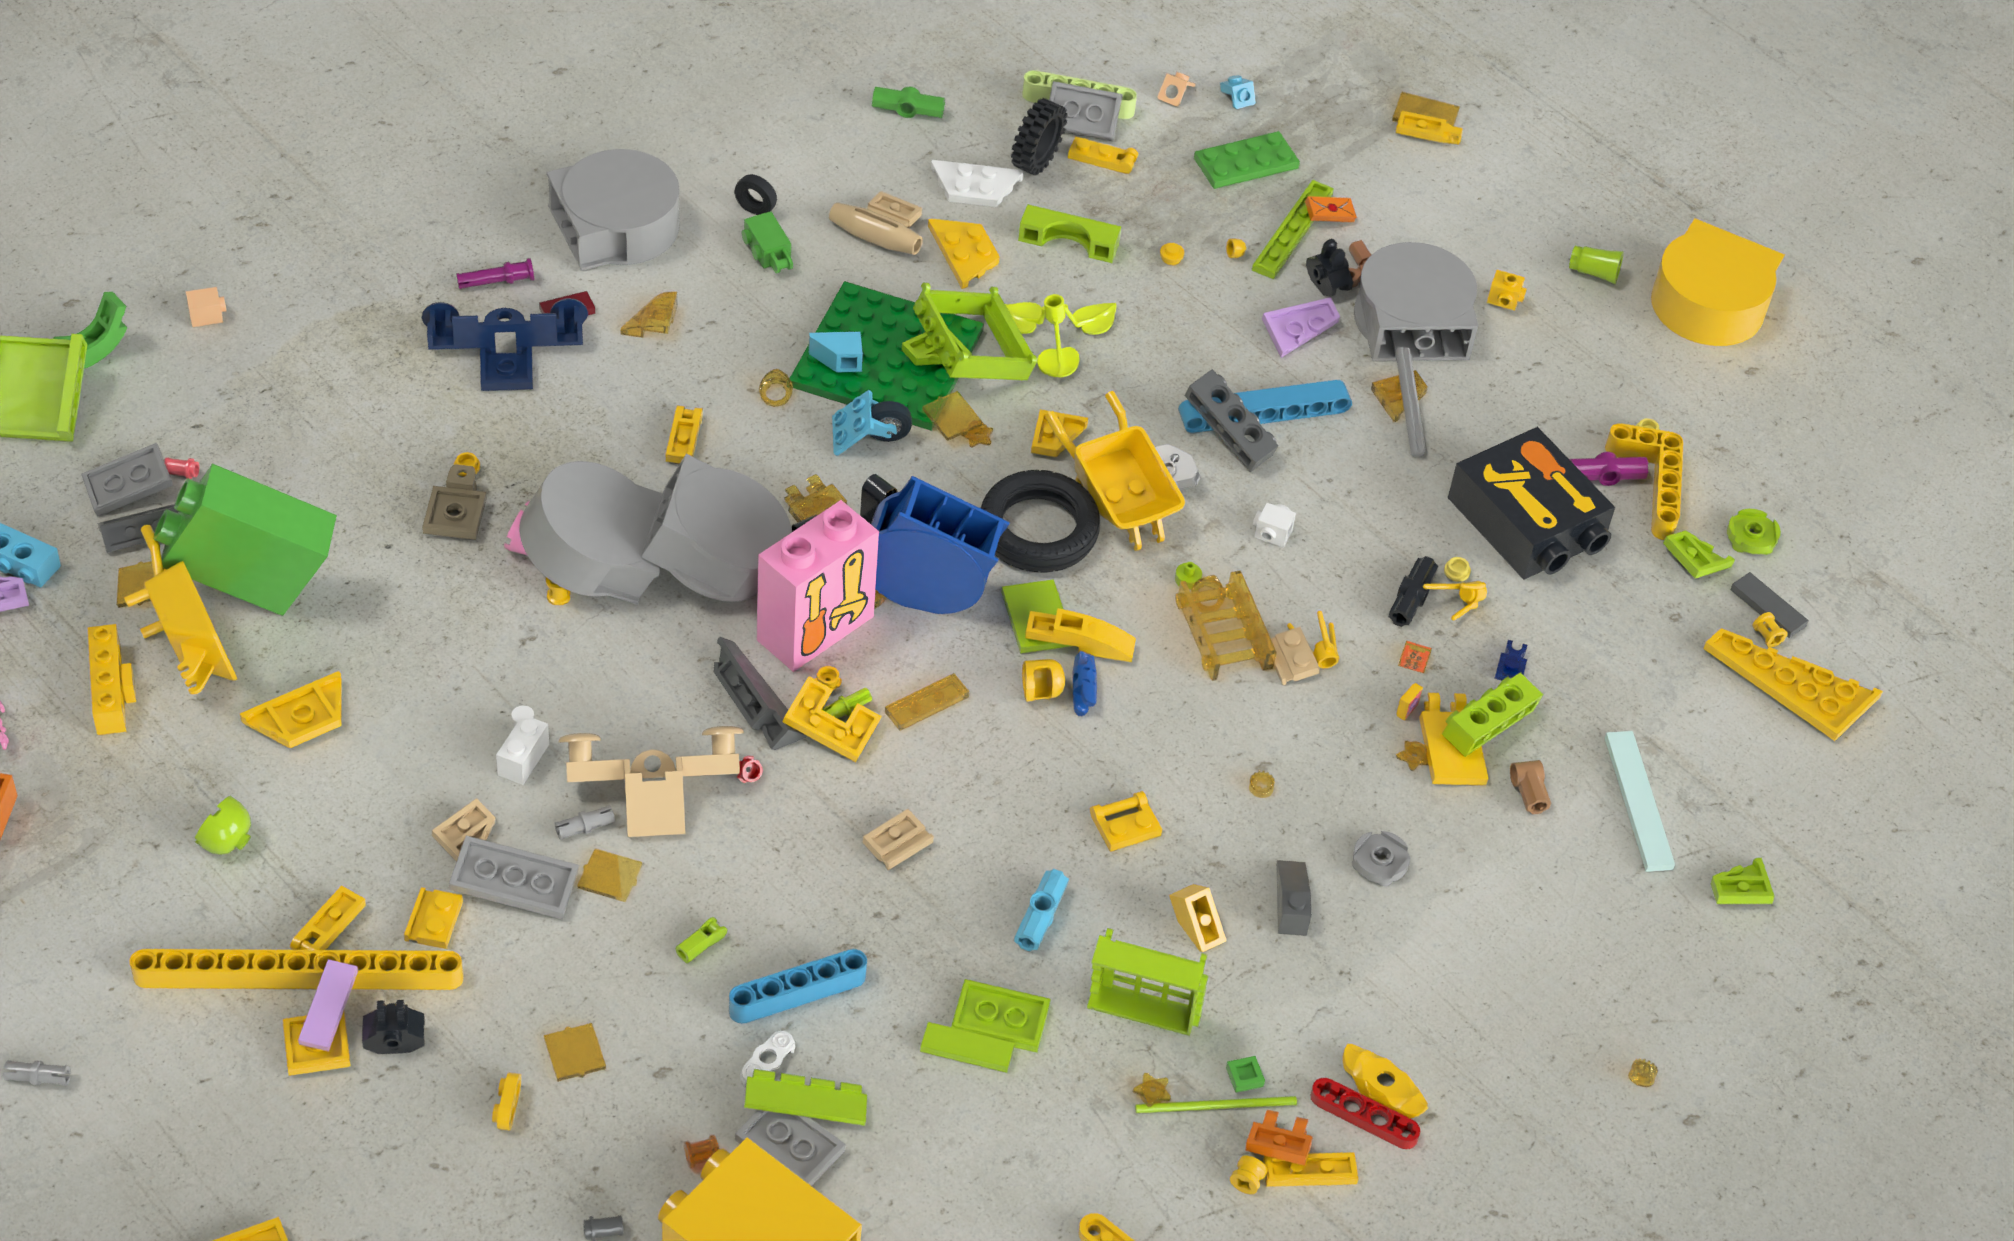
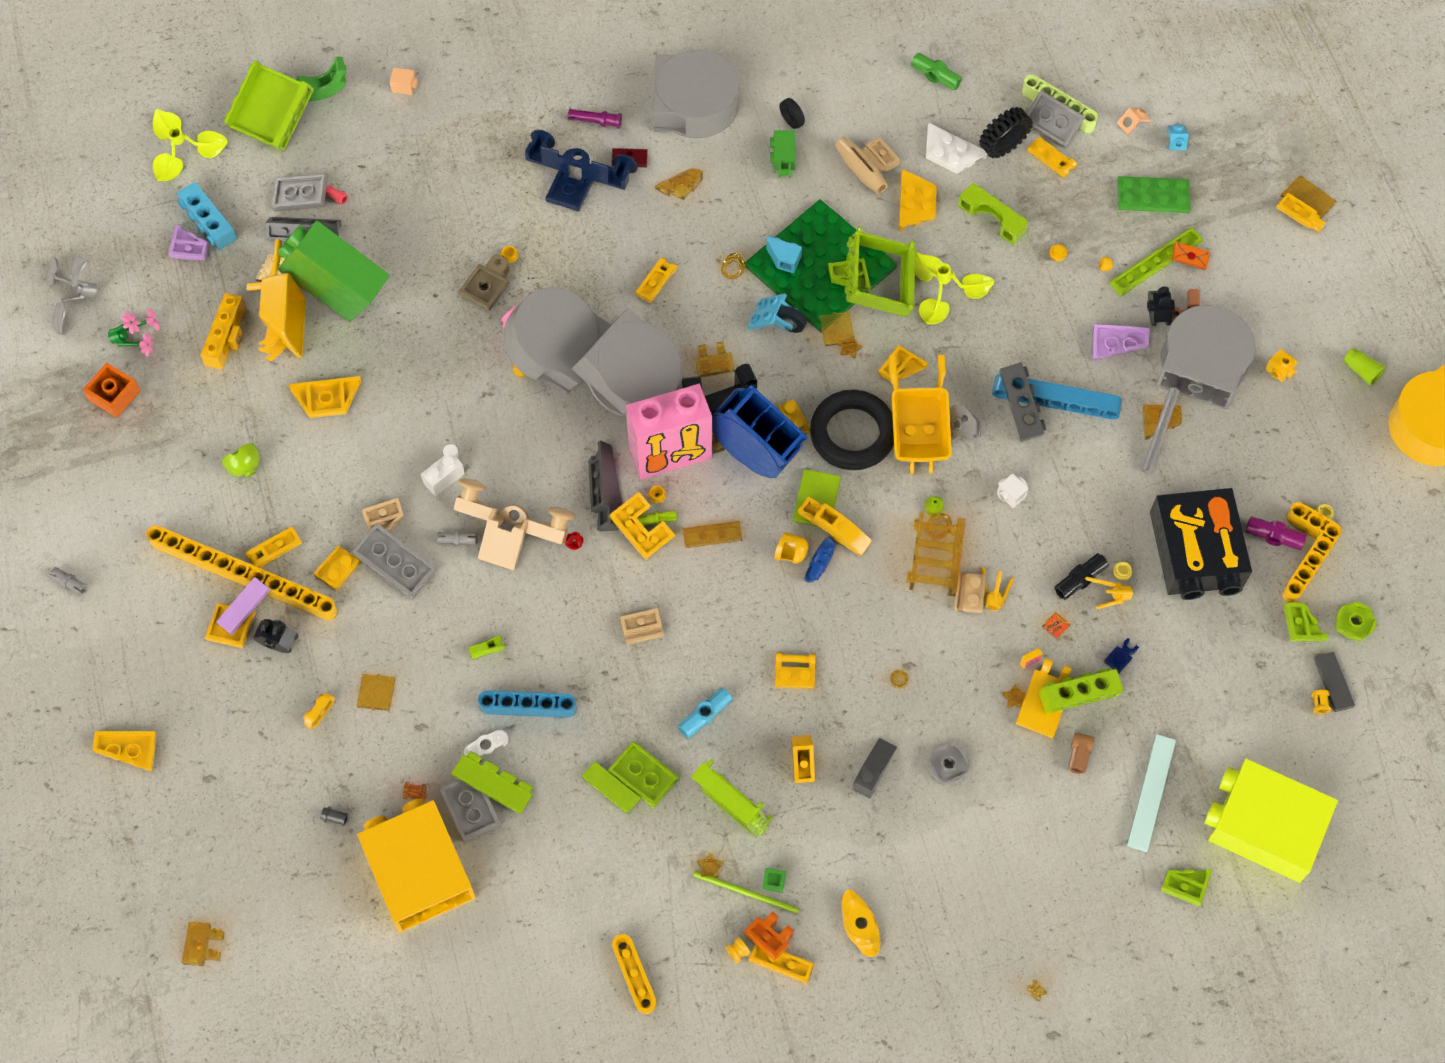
camera: 30 degrees right, 15 degrees up
(609, 875) = (455, 580): clear yellow piece -> none
(1363, 1116) = (840, 937): red beam -> none
(1796, 772) = (1270, 819): none -> neon yellow brick
(1799, 685) = (1318, 753): yellow wing -> none

